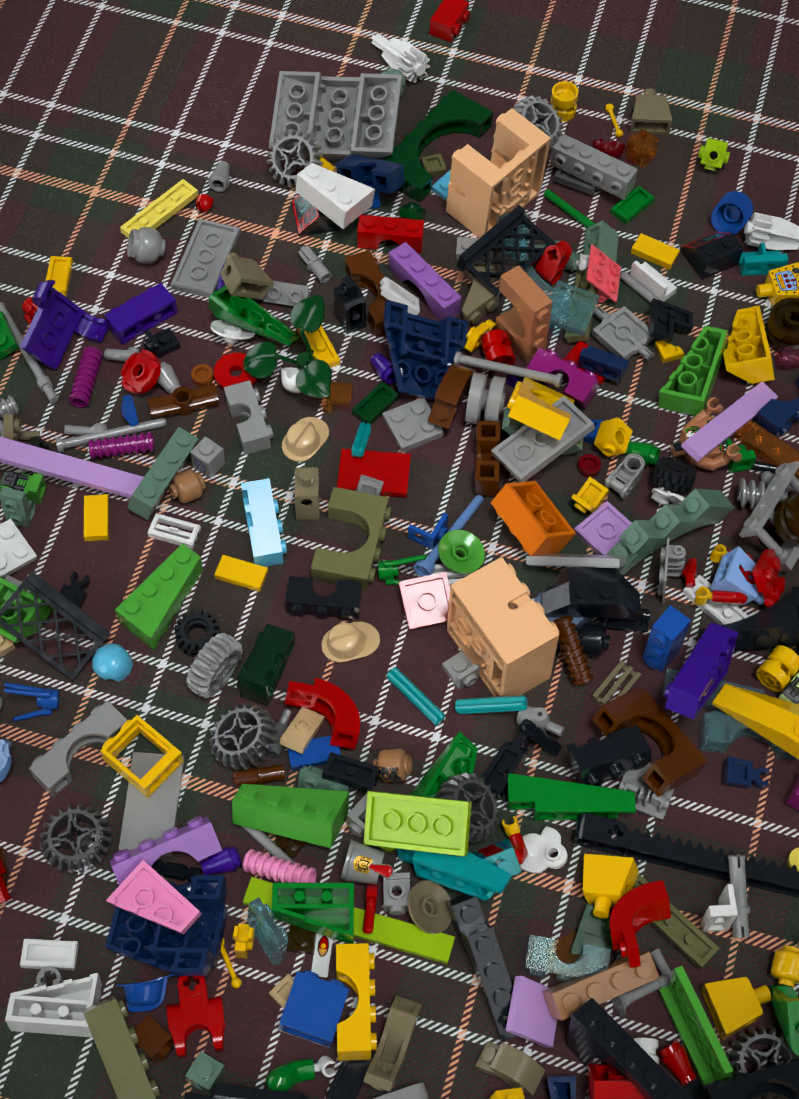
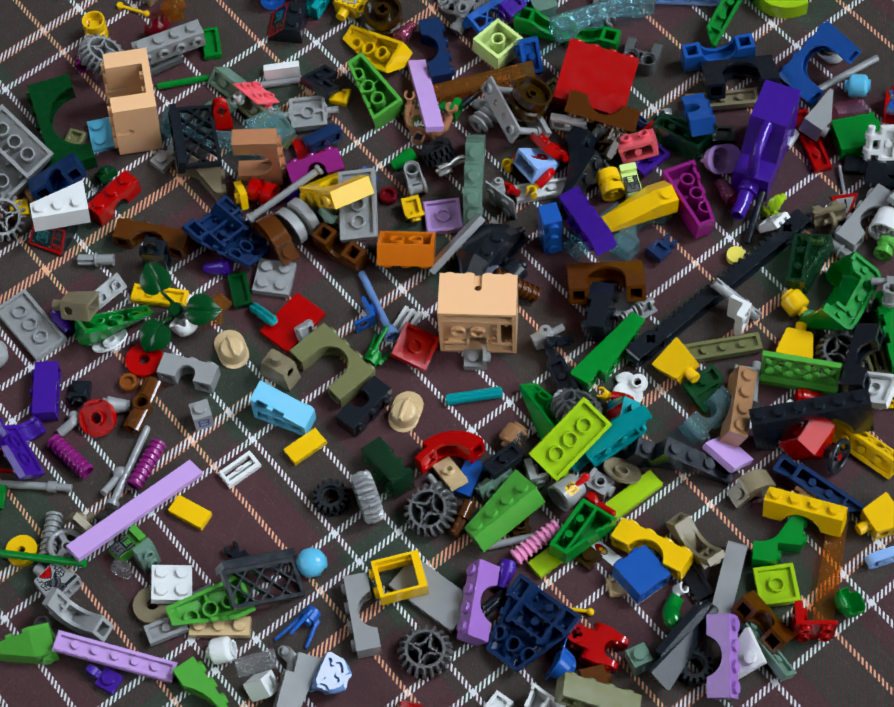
camera: 50 degrees left, 0 degrees up
(129, 411) = (124, 441): blue tile -> none
(154, 899) = (509, 620): bright pink wing -> none
(158, 478) = (203, 461): sand green arch -> none
(160, 596) = (290, 509): bright green wedge -> none
(187, 486) = (214, 440): medium nougat head -> none
(244, 939) = (568, 588): yellow plate -> none
(269, 935) = (574, 570): clear light blue plate -> none
(398, 294) = (171, 222): white tile -> none
(410, 266) = (150, 202): medium lavender arch -> none
(465, 544) = (395, 305): bright green dish -> none
(491, 704) = (515, 354): teal axle -> none
(613, 437) = (384, 167): yellow brick -> none
(628, 671) = (549, 267): dark tan tile -> none
(633, 911) = (707, 356): red arch -> none
(655, 251) = (259, 54): yellow tile -> none

